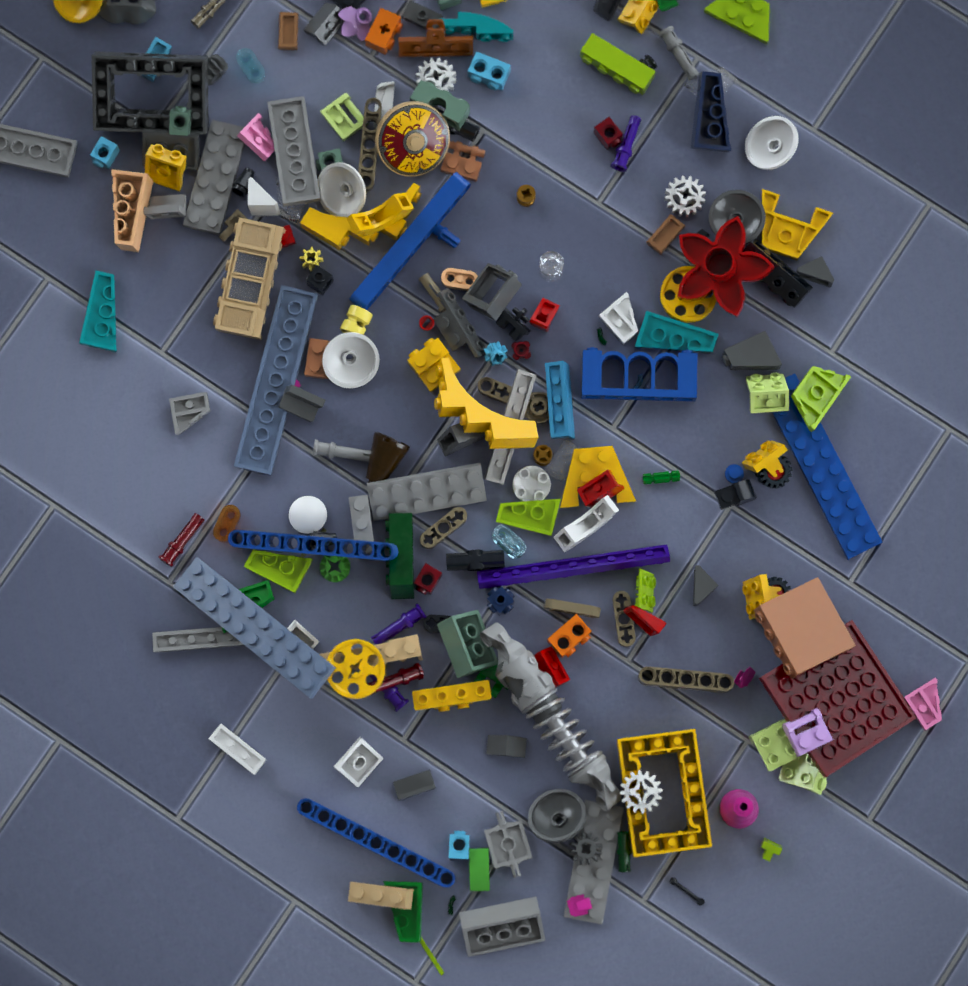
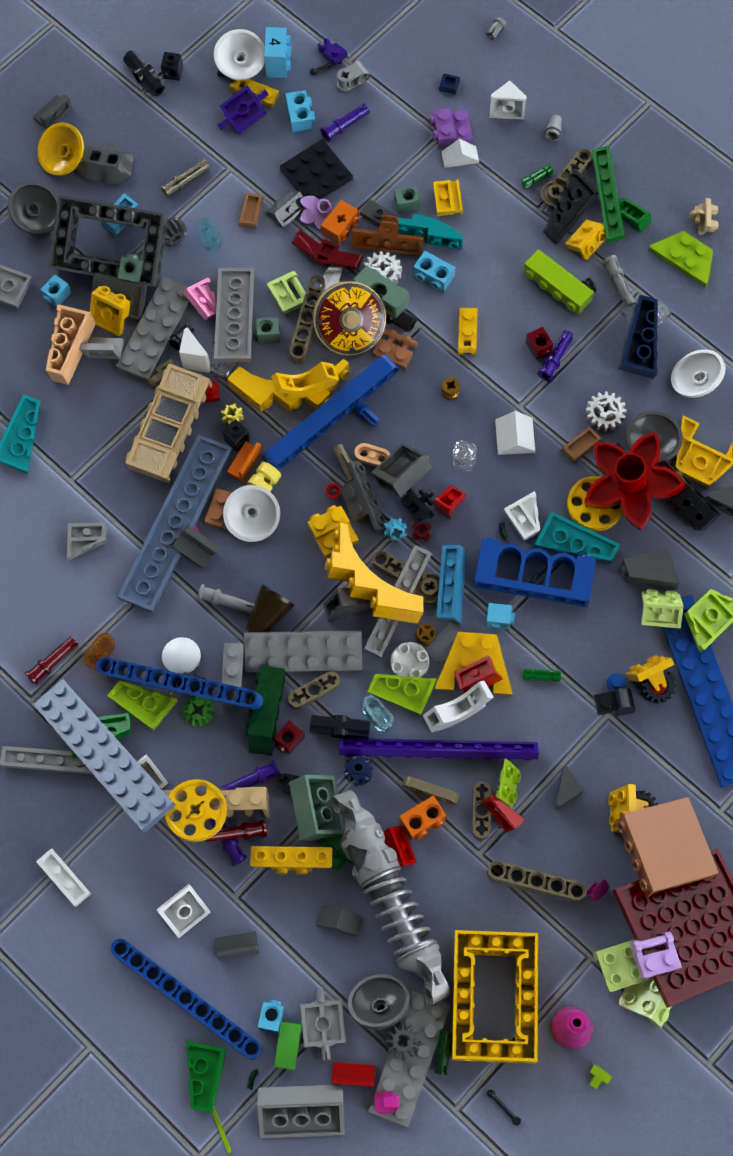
camera: 10 degrees right, 10 degrees down
(74, 63) = (38, 198): none -> dark grey dish
(332, 305) = (245, 461): none -> orange panel
(334, 191) = (272, 353): white dish -> none
(375, 67) = (326, 252): none -> dark red plate
(380, 895) = (179, 1054): tan arch -> none
(533, 130) = (467, 330): none -> yellow plate
(544, 885) = (353, 1074): none -> red panel
(598, 234) = (515, 434): none -> white slope
(612, 425) = (500, 616): none -> medium azure brick
(649, 791) = (480, 989): white gear -> none

